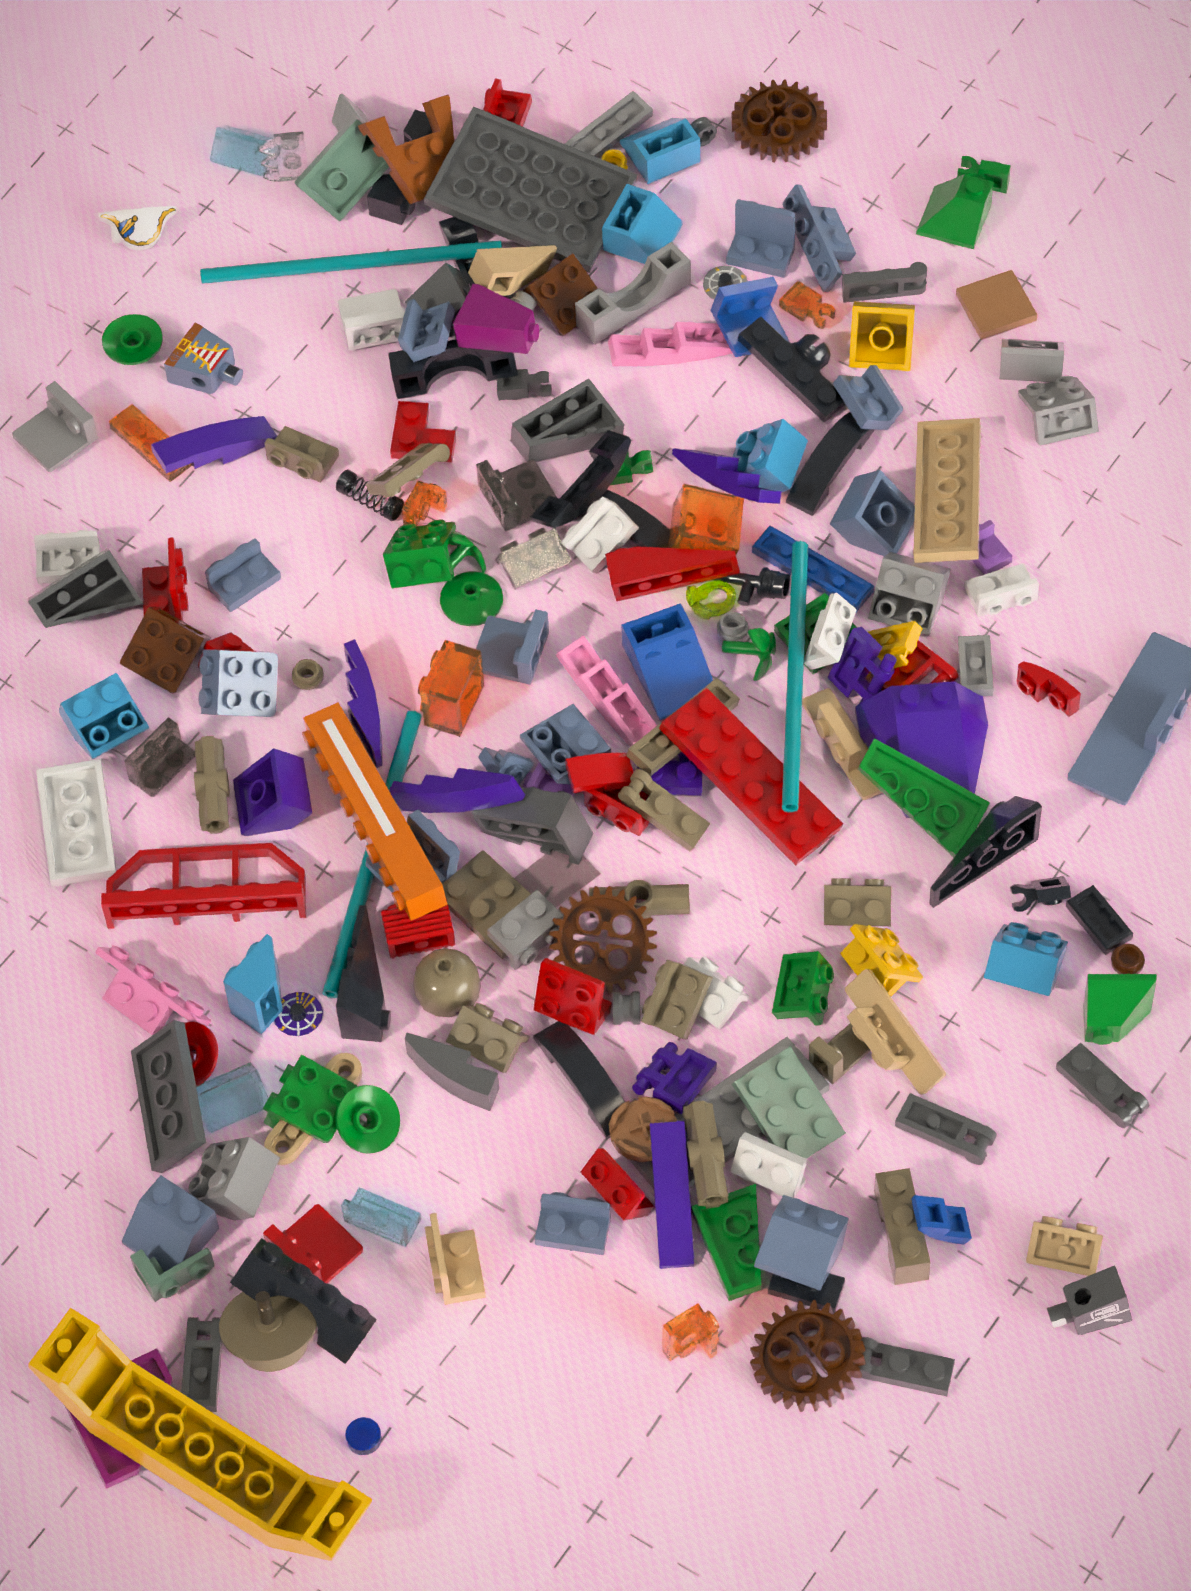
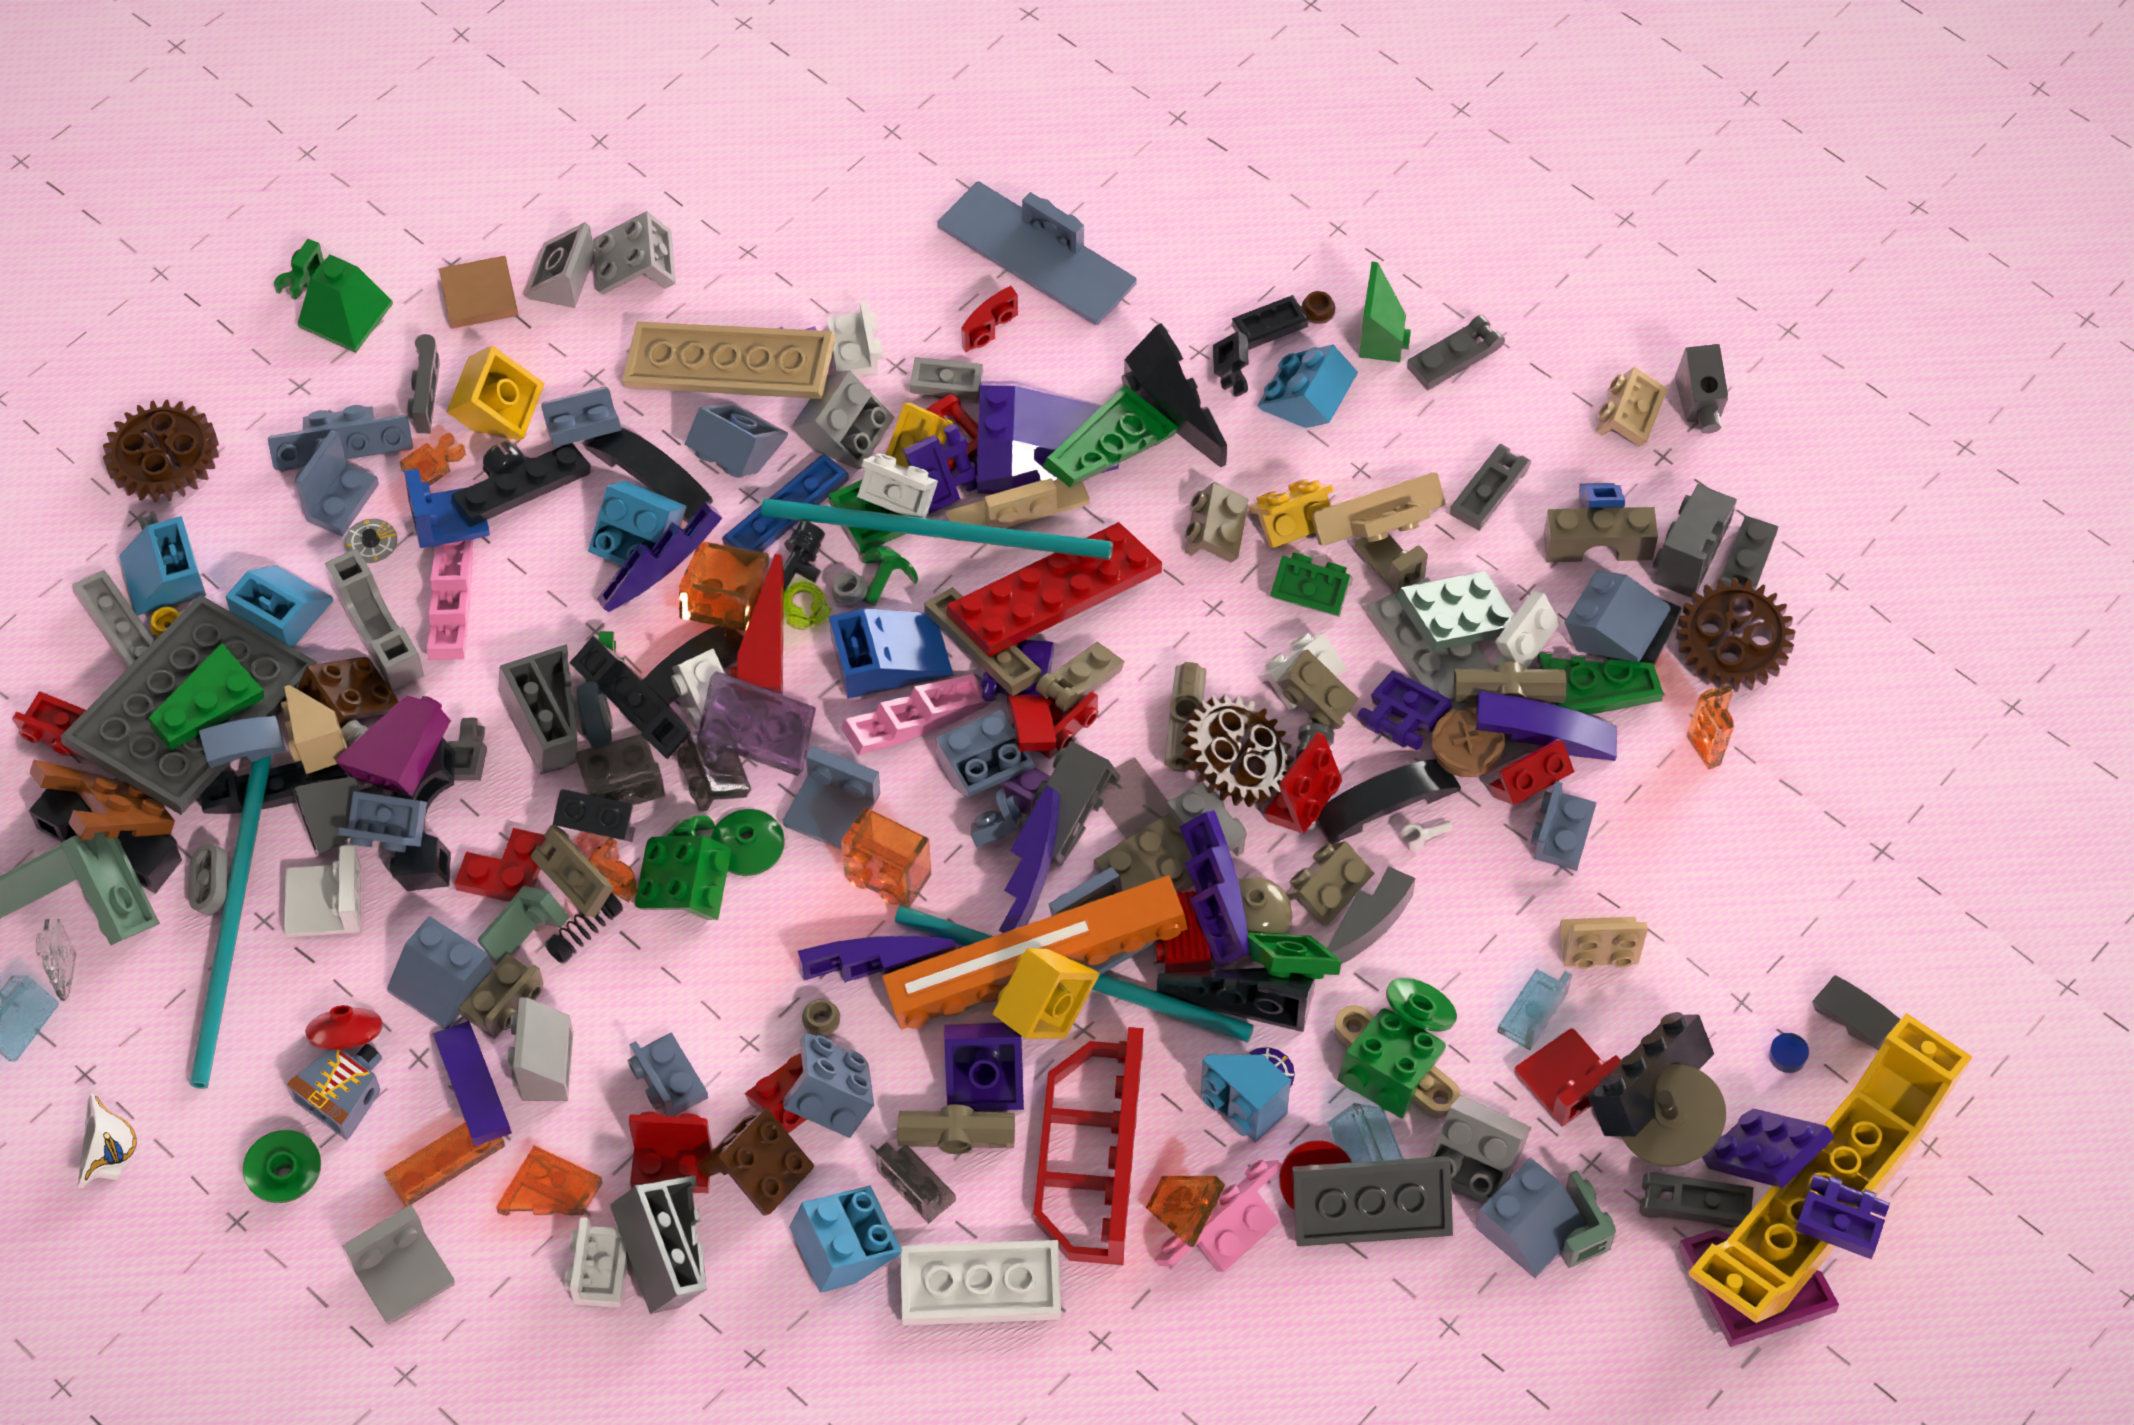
camera: 85 degrees left, 0 degrees up
(138, 517) = (549, 1186): none -> clear orange wing
(149, 1450) = (1839, 1223): none -> dark purple plate
(151, 953) = (1185, 1204): none -> clear orange wing
(243, 481) = (541, 1052): none -> light grey slope
(243, 1404) = (1767, 1147): none -> dark purple plate
(254, 353) = (343, 1028): none -> red dish
(316, 405) = (438, 972): none -> sand blue slope
(326, 818) = (1044, 994): none -> yellow slope
(363, 447) = (519, 919): none -> sand green bracket
(387, 238) = (208, 879): none -> light grey plate
(393, 1001) = (1292, 954): none -> green plate
(404, 1488) = (1856, 1010): none -> dark grey slope
(436, 938) = (1217, 888): none -> dark purple slope
(460, 478) = (594, 815): none -> black bracket
(490, 221) = (242, 738): none -> sand blue slope
(529, 194) = (205, 699): none -> green wing
(549, 1108) = (1426, 834): none -> white hand
(561, 458) = (594, 714): none -> black wheel
(572, 574) = (756, 723): none -> clear purple plate
(910, 1309) = (1693, 540): none -> dark grey wedge

